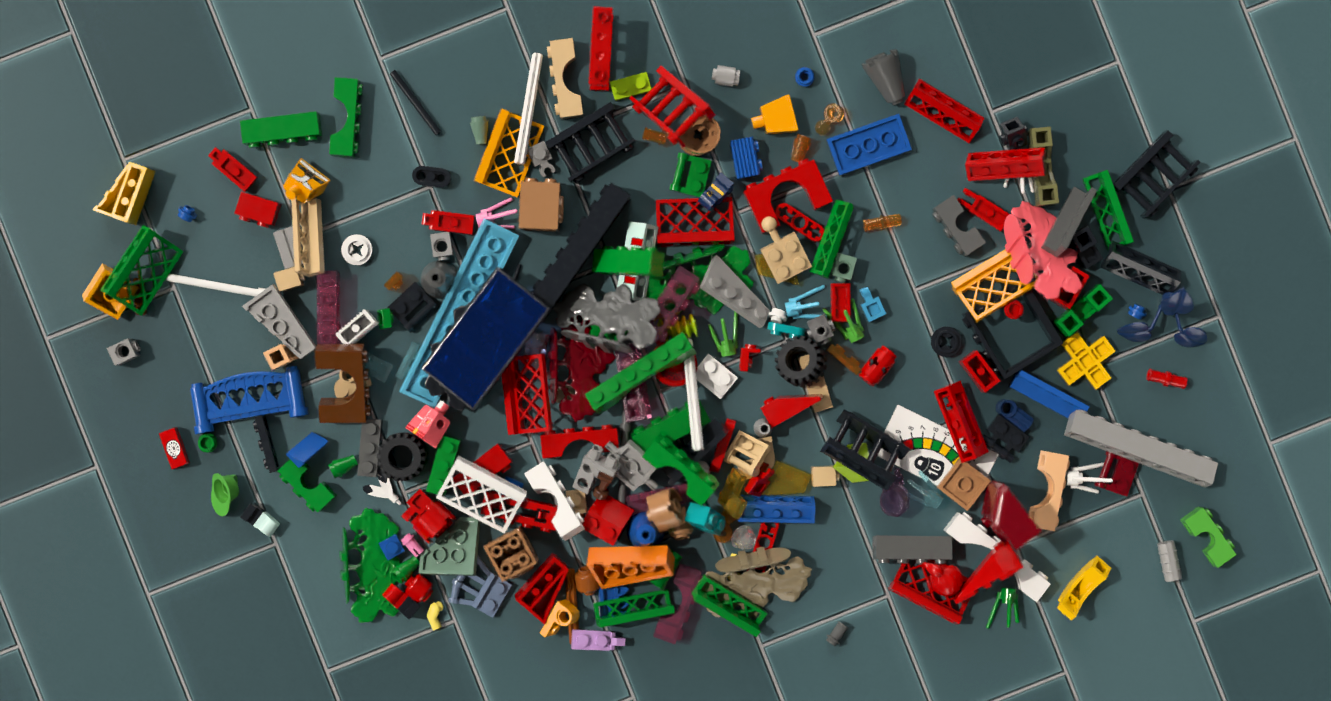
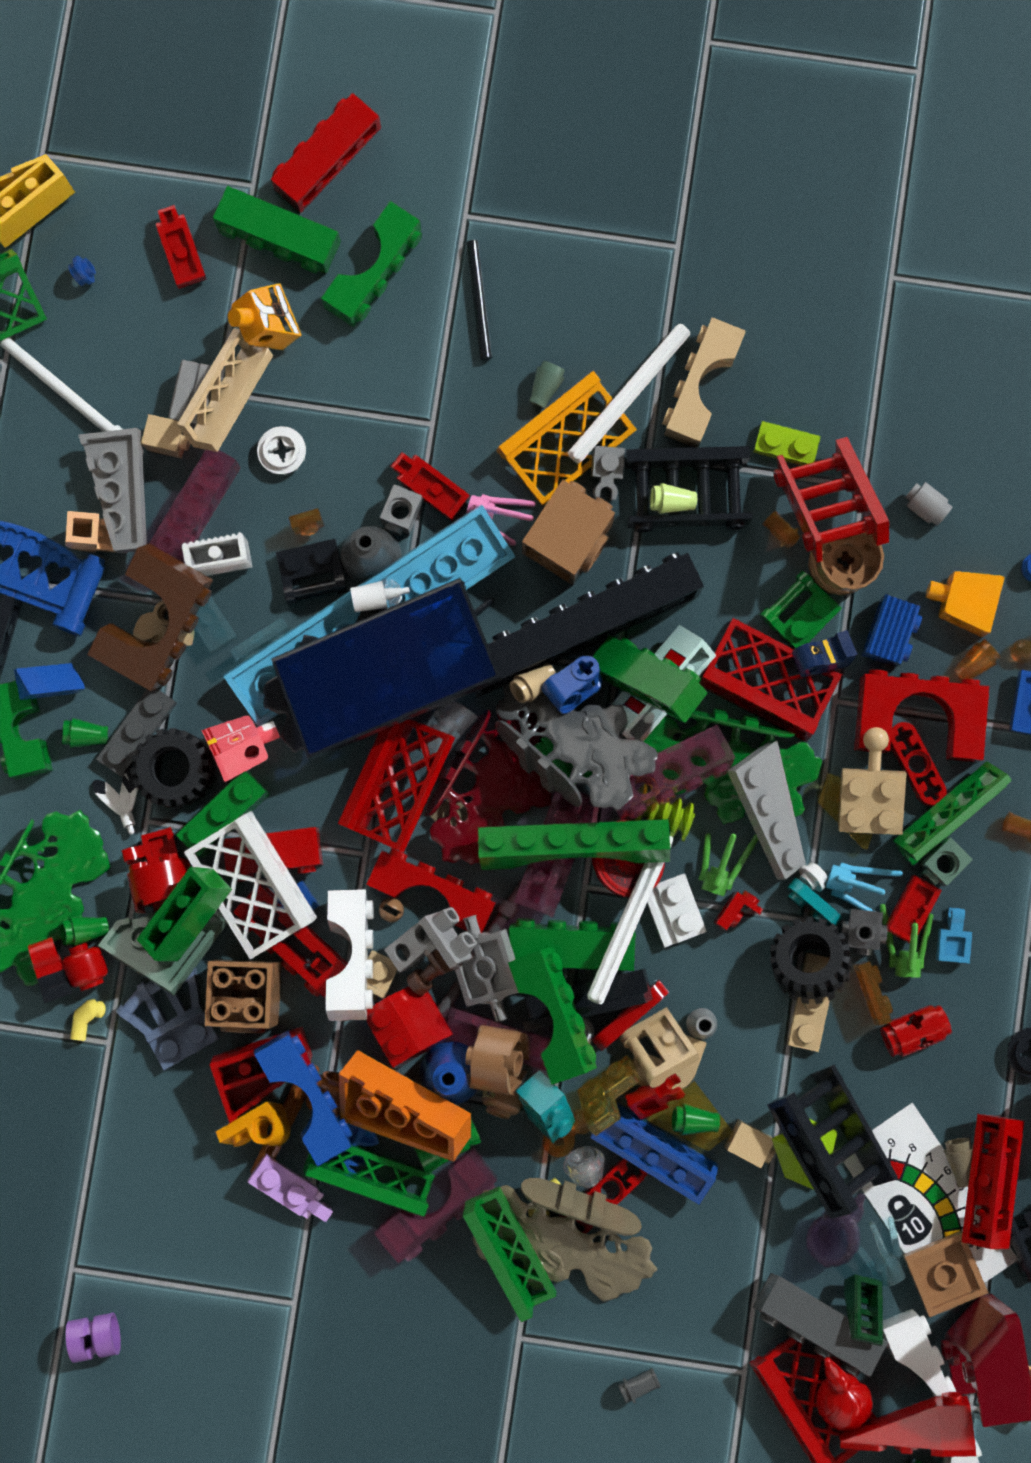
camera: 25 degrees right, 5 degrees down
(258, 209) = (180, 318): red brick -> none
(281, 69) = (325, 152): none -> red brick
(385, 318) = (264, 565): green plate -> none
(391, 547) = (82, 886): blue plate -> none
(413, 546) = (113, 900): bright pink pin -> none
(432, 175) = (444, 409): black plate -> none
(456, 530) = (184, 914): none -> green brick
(457, 301) = (377, 595): none -> white piece
(554, 576) = (284, 1062): none -> blue arch
(563, 459) = (395, 904): none -> medium nougat hinge
(567, 300) = (528, 684): none -> tan cone
(585, 155) = (672, 499): none -> yellowish green cone
(590, 289) = (573, 686): none -> blue piece
(601, 48) = (777, 366): red fence -> none
(784, 407) = (750, 1012): red slope -> none
(787, 481) = (694, 1120): none -> green cone
(930, 514) = (873, 1299): none -> dark green slope
(936, 418) = (959, 1157): none -> dark tan cone

